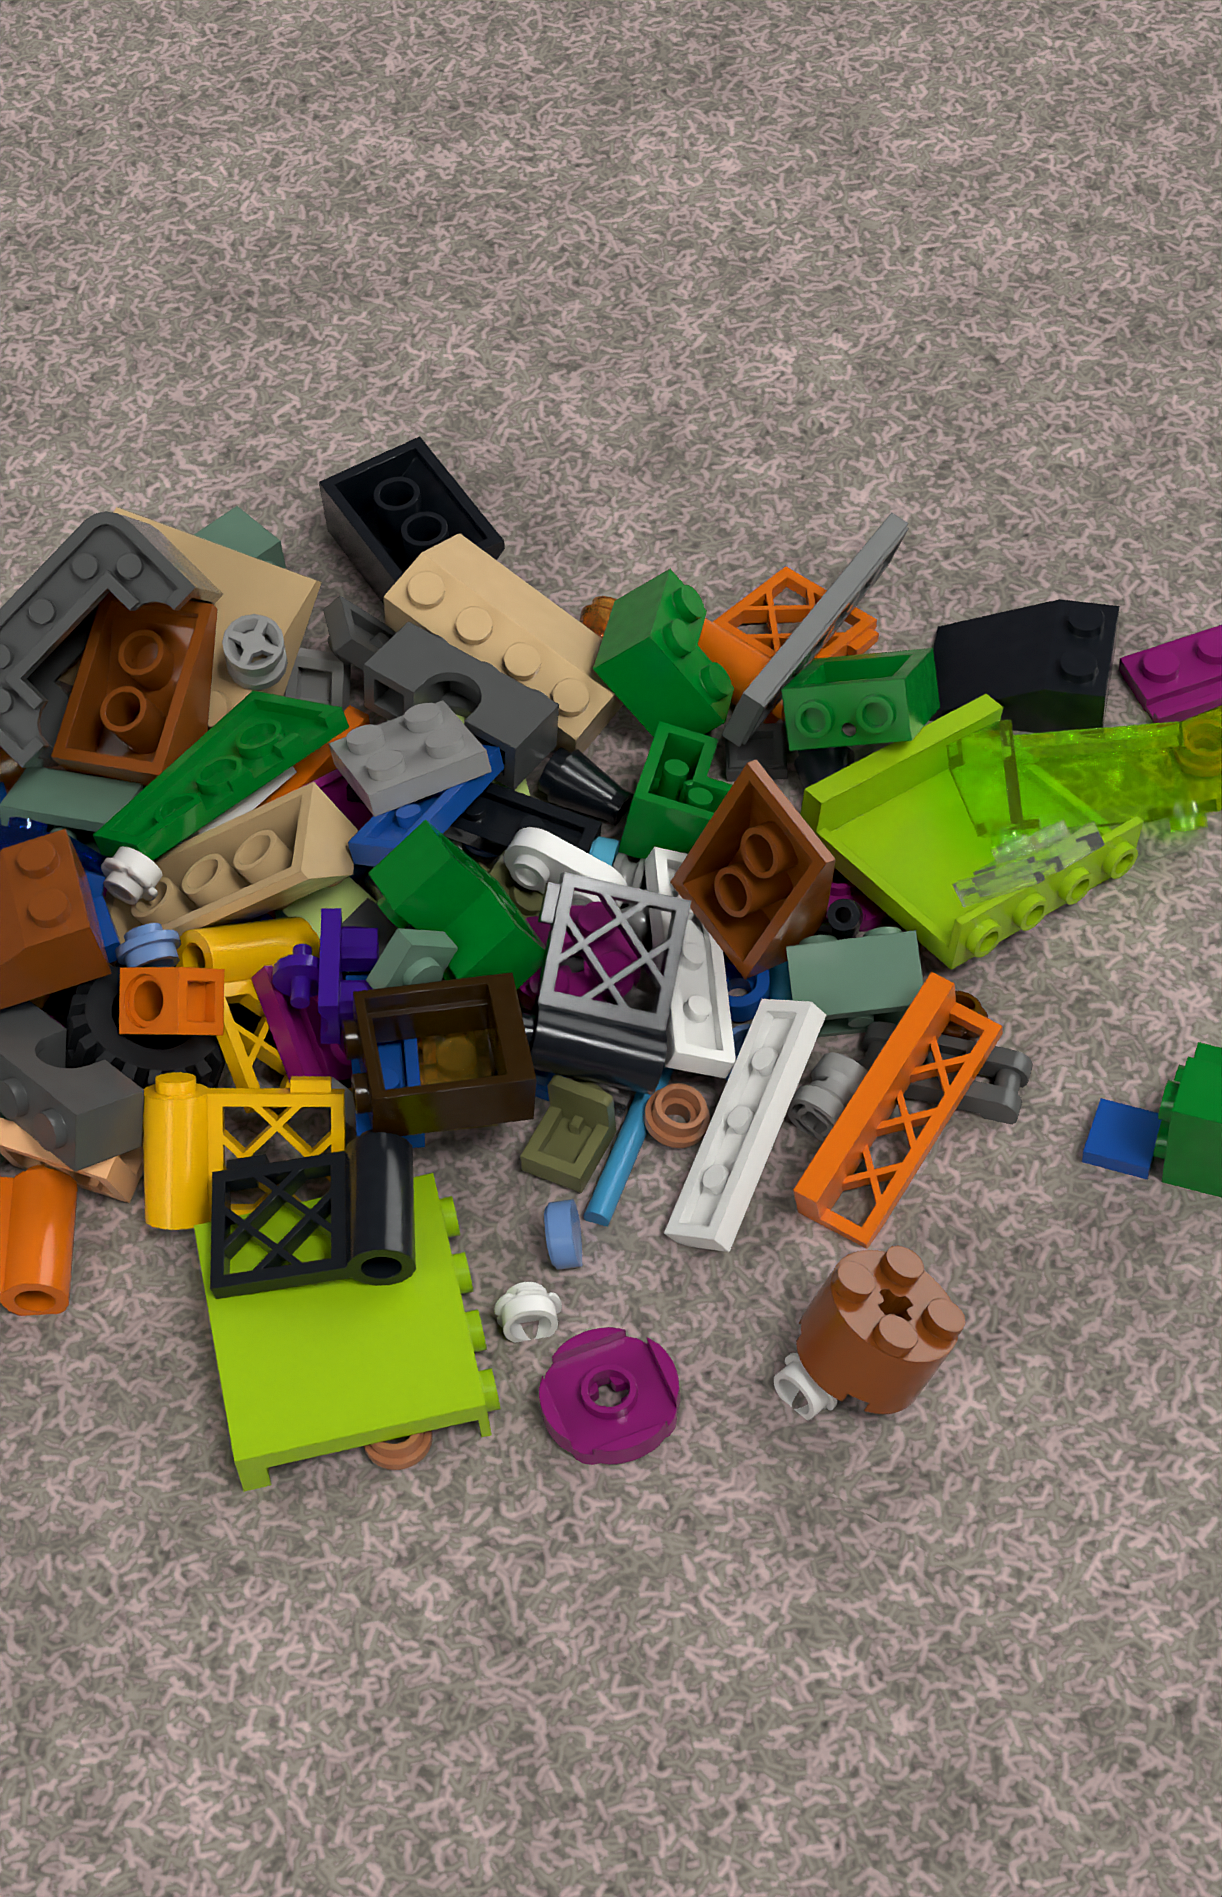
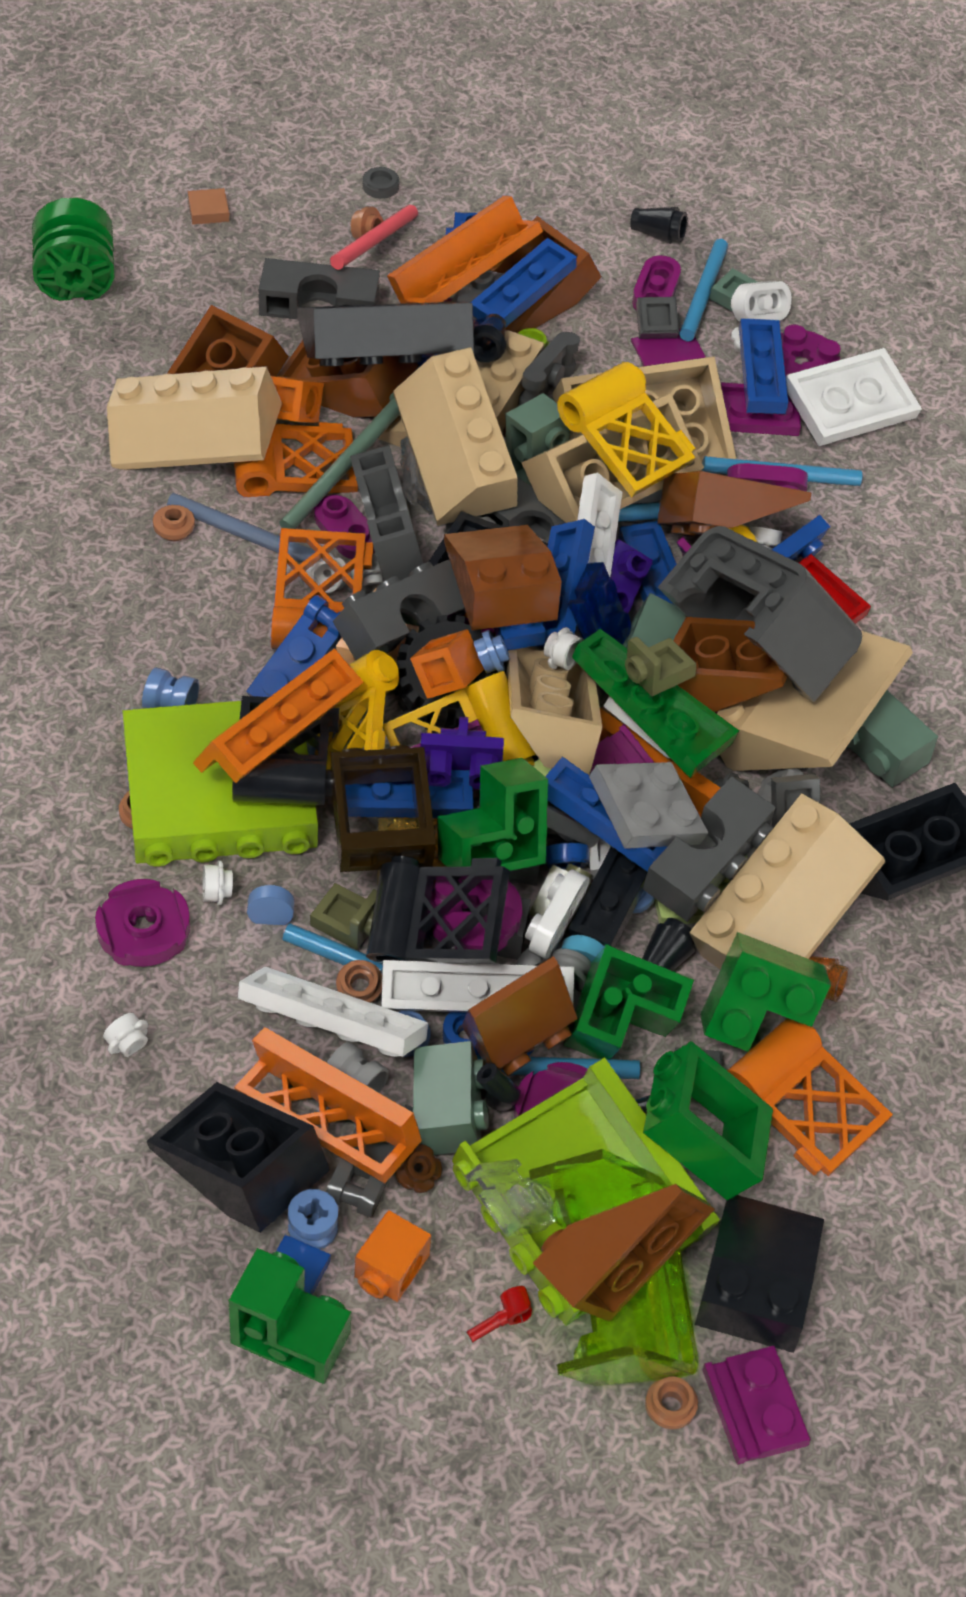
camera: 85 degrees right, 0 degrees up
(108, 1244) = (298, 649): none -> blue plate
(175, 1421) = (165, 690): none -> medium blue wheel
(177, 749) = (658, 666): none -> olive bracket
(247, 639) = (752, 710): light grey wheel -> none
(282, 1187) = (281, 717): none -> orange fence
(412, 958) = (450, 788): sand green plate -> none
(815, 630) = (796, 1105): tile -> none
(878, 1329) = (152, 1036): dark orange brick -> none
(983, 1207) = (242, 1154): none -> black slope
(1043, 1128) = (315, 1230): none -> medium blue wheel
(1084, 735) = (615, 1252): none -> dark orange slope
(1095, 1026) = (391, 1257): none -> orange brick
(1129, 902) = (515, 1303): none -> red hand

